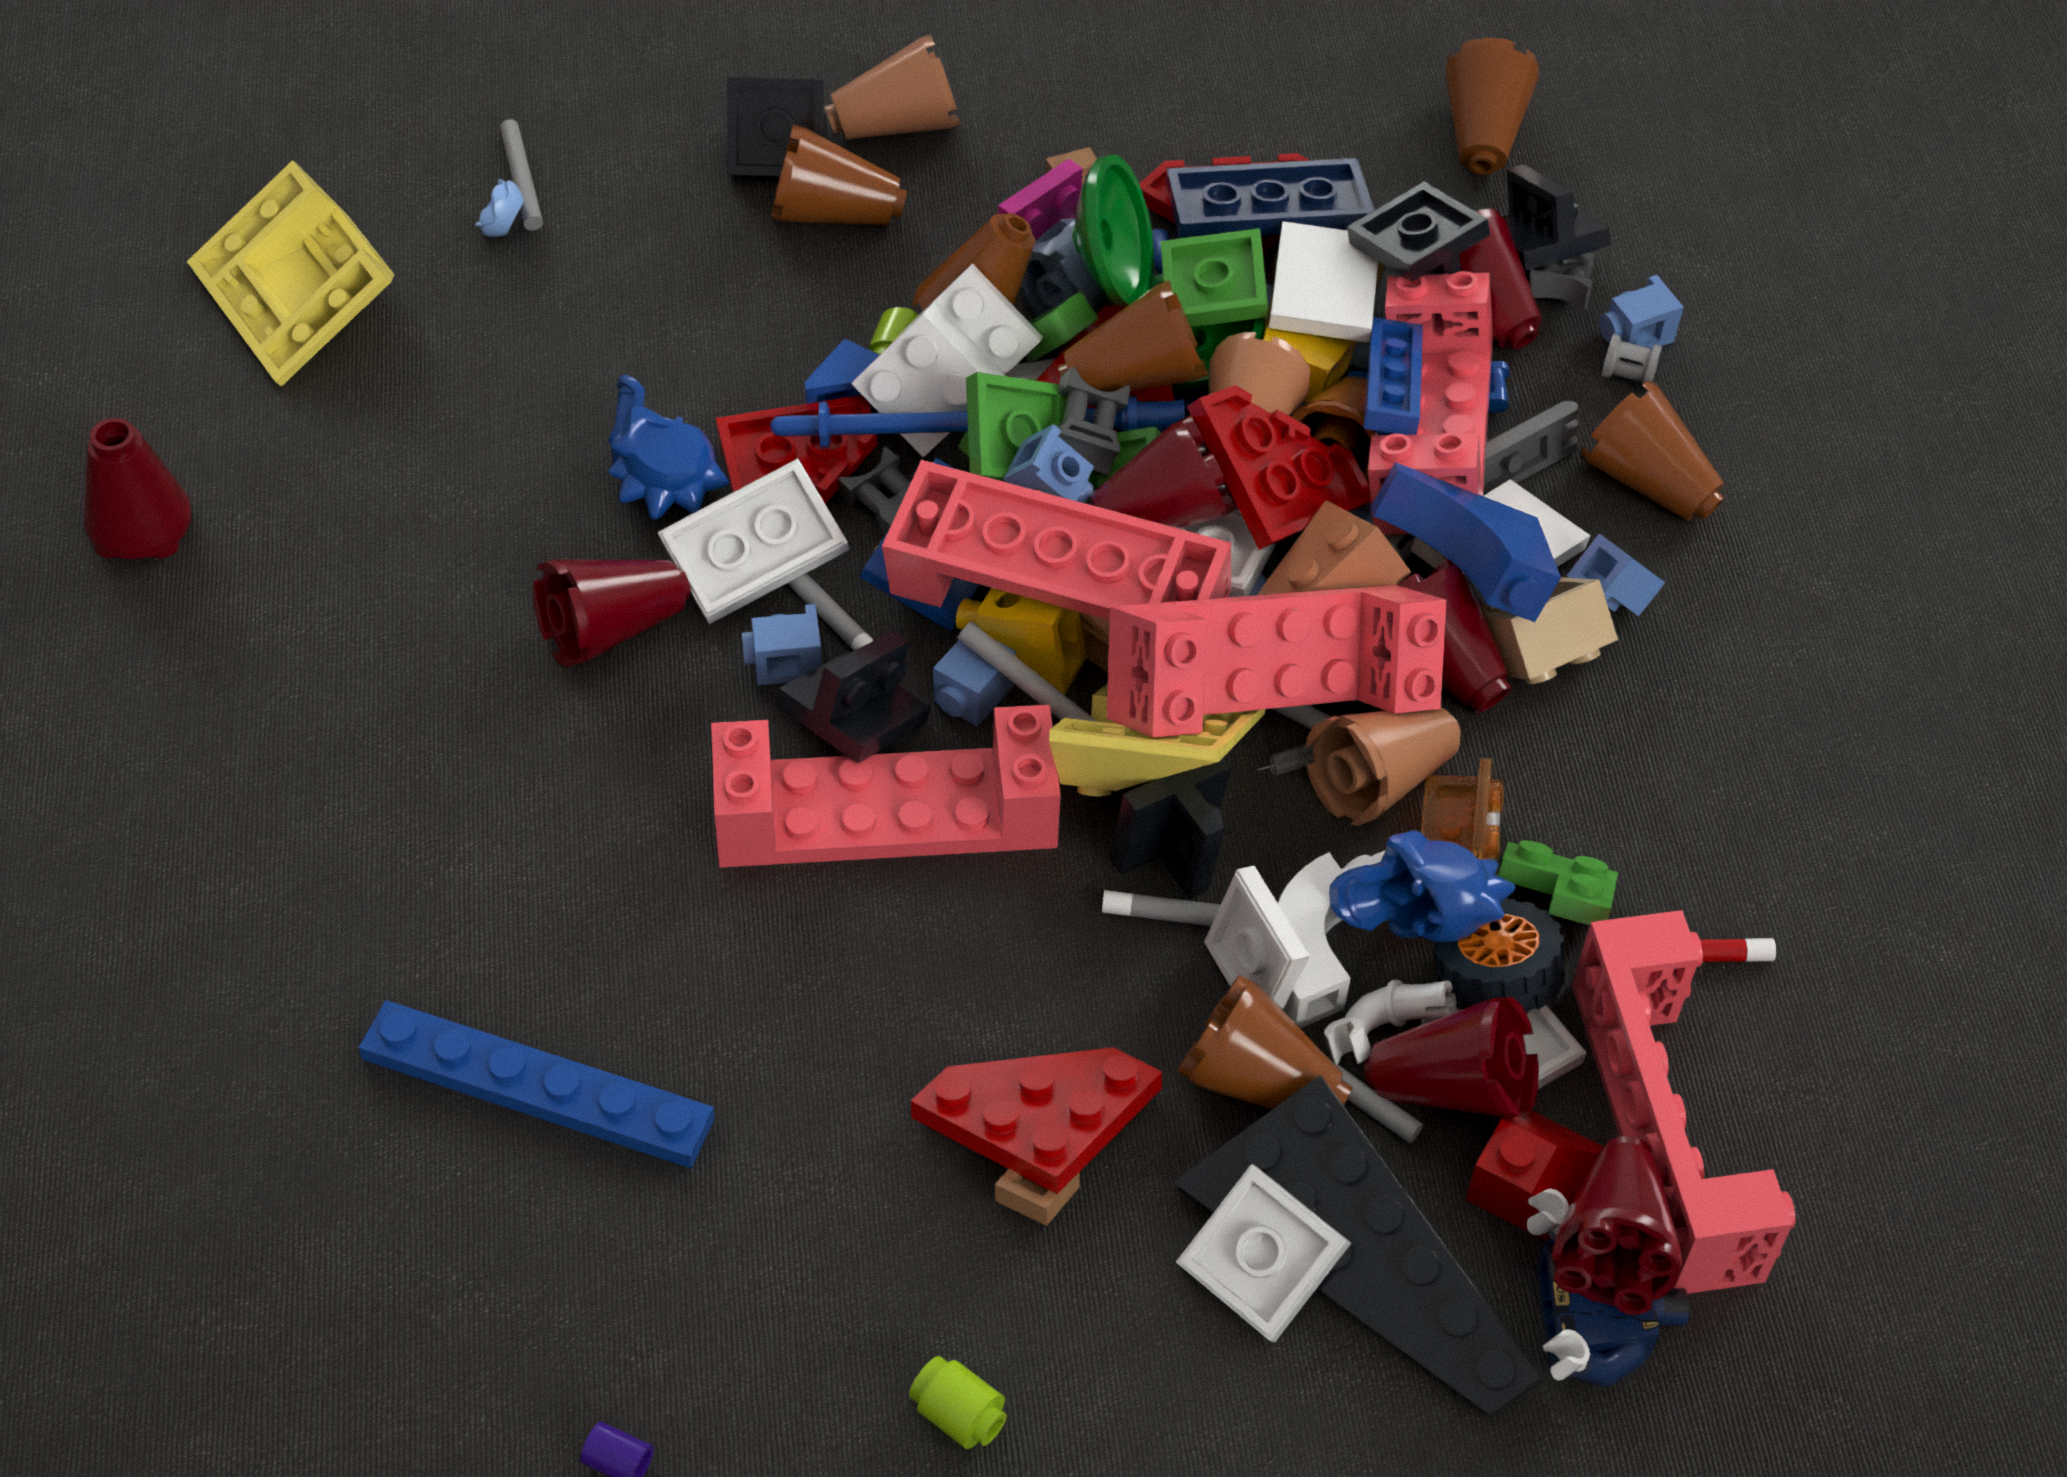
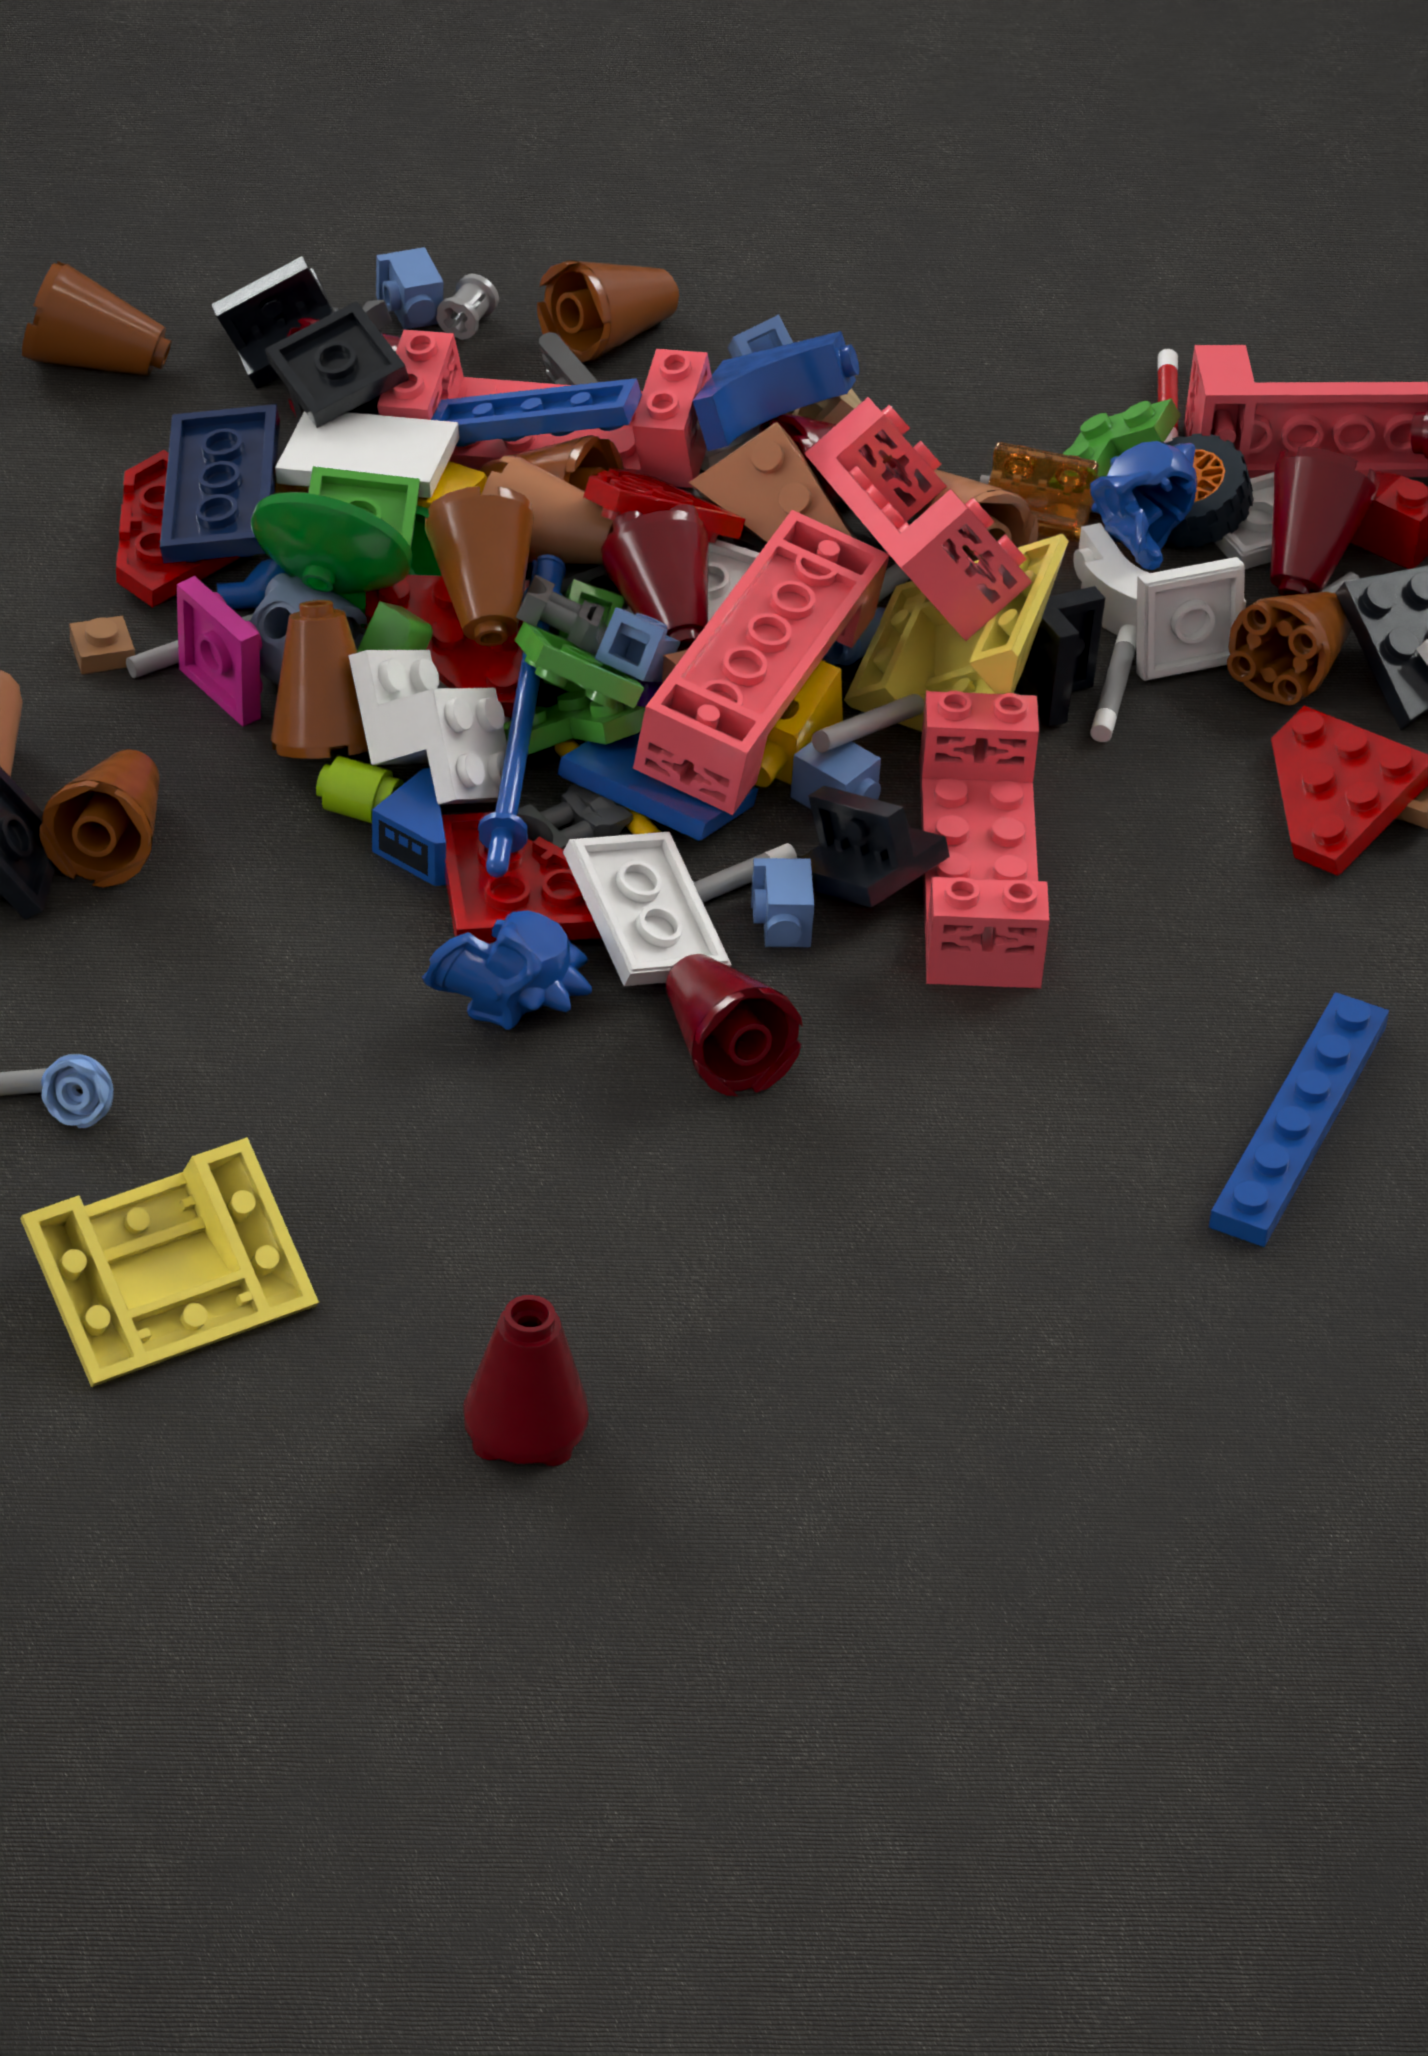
camera: 85 degrees left, 10 degrees down
(1387, 1005) = (1235, 542): white piece -> none

